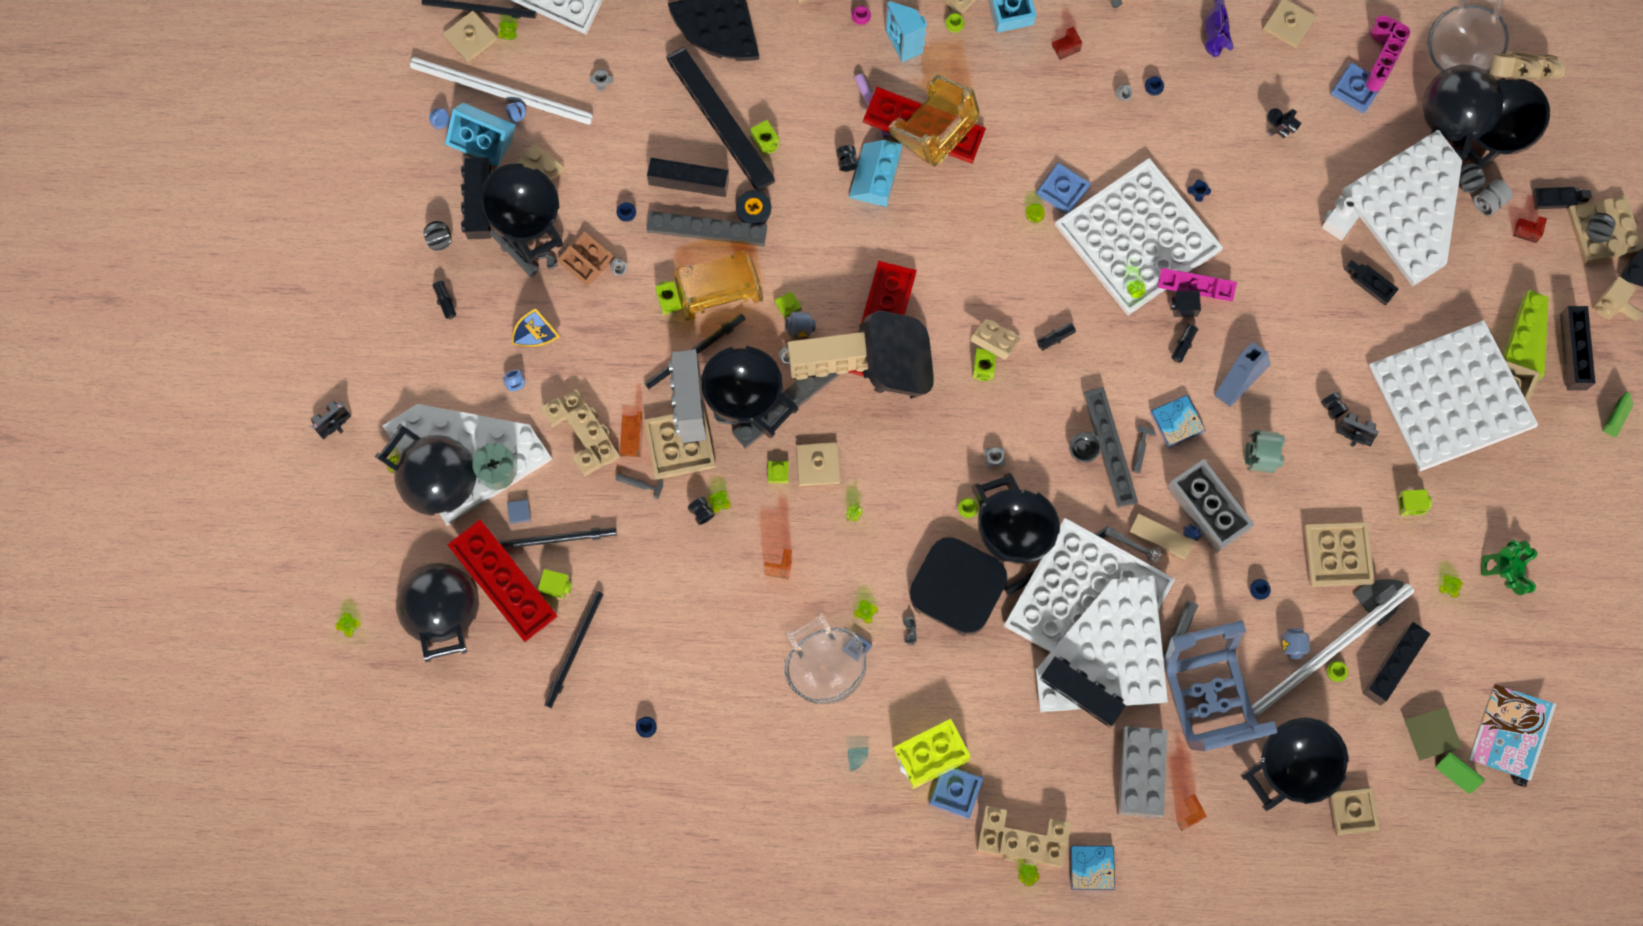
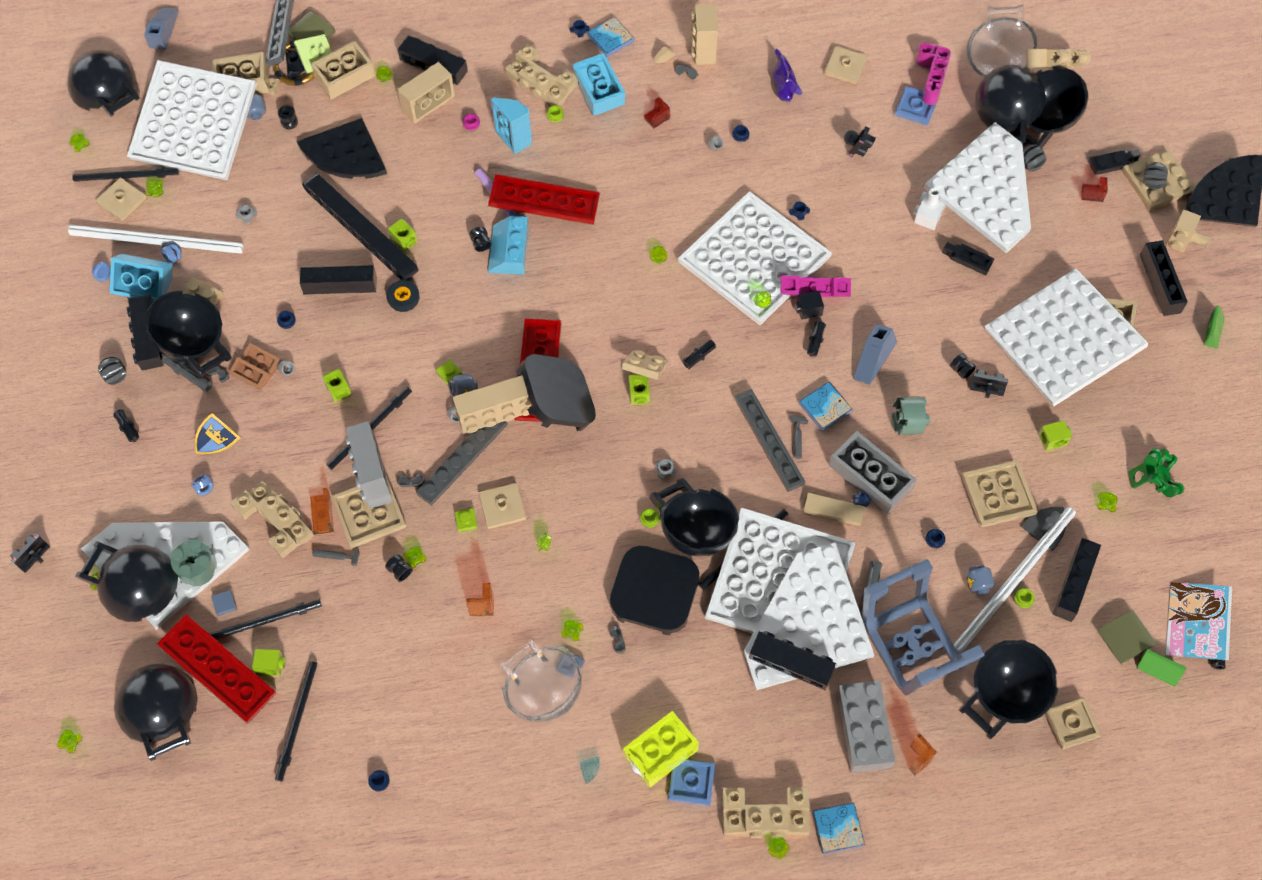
camera: 10 degrees left, 10 degrees down
(707, 228) = (362, 321): dark grey plate -> none
(717, 283) = (380, 363): clear yellow windscreen -> none
(745, 387) = (421, 447): black windscreen -> none
(939, 121) = (558, 192): clear yellow windscreen -> none
(1063, 188) = (679, 230): medium blue tile -> none
(1085, 447) = (746, 443): dark grey hair -> none
(1153, 555) = (830, 527): dark grey piece -> none
(1493, 197) = (1056, 170): light grey wheel -> none
(1529, 333) = (1117, 272): lime wedge -> none

